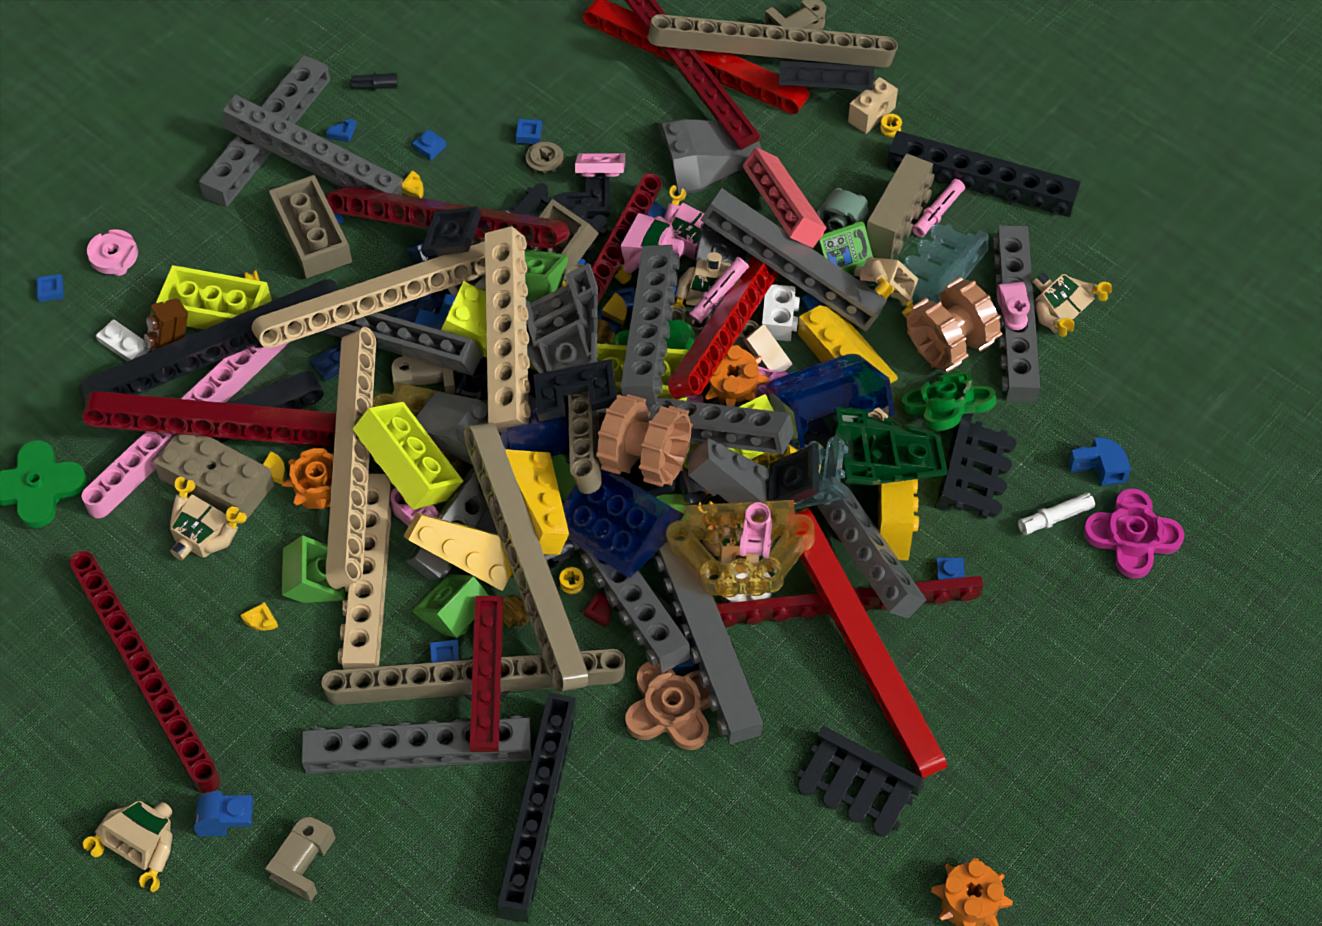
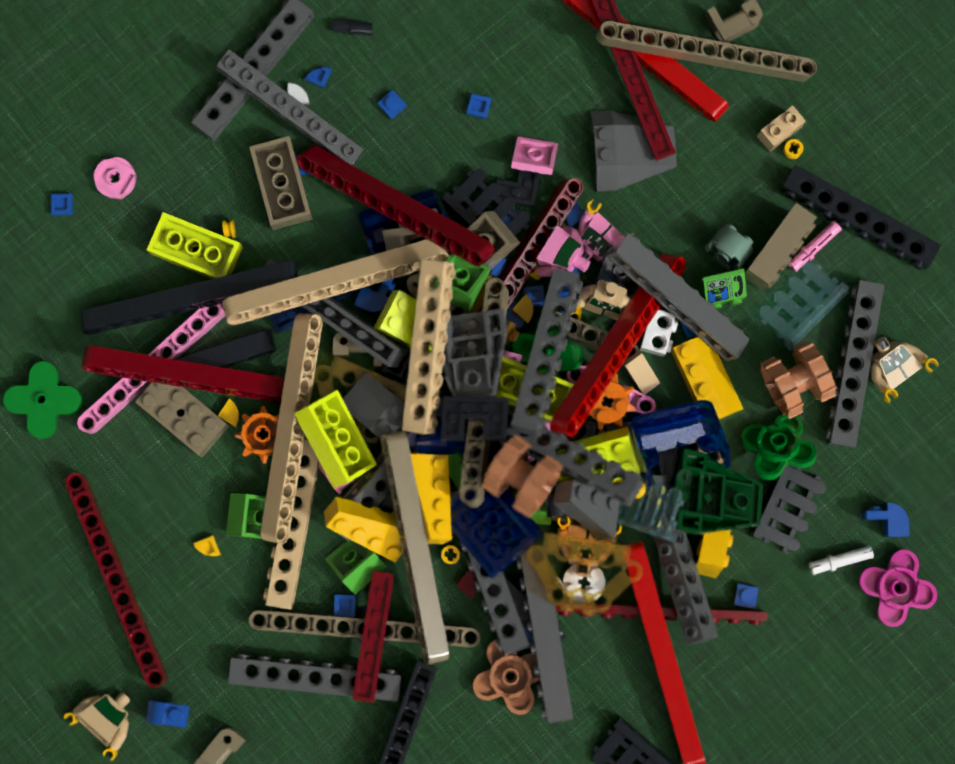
camera: 10 degrees right, 25 degrees up
(122, 341) = (118, 270): white plate -> none
(165, 324) = (154, 272): reddish brown brick -> none
(199, 525) = (167, 460): tan torso -> none
(413, 185) = (373, 147): yellow tile -> none
(451, 231) = (396, 232): black plate -> none
(514, 611) = (400, 578): pearl gold gear -> none
(548, 150) = (492, 127): dark tan gear -> none
(699, 313) = (603, 323): bright pink pin -> none
(756, 536) = (595, 576): bright pink piece -> none
(784, 197) = (682, 229): coral brick -> none
(795, 475) = (636, 521): black plate -> none
(826, 75) = (746, 99): black fence -> none
(888, 279) = (753, 326): tan torso -> none
(1014, 304) = (852, 363): bright pink piece -> none

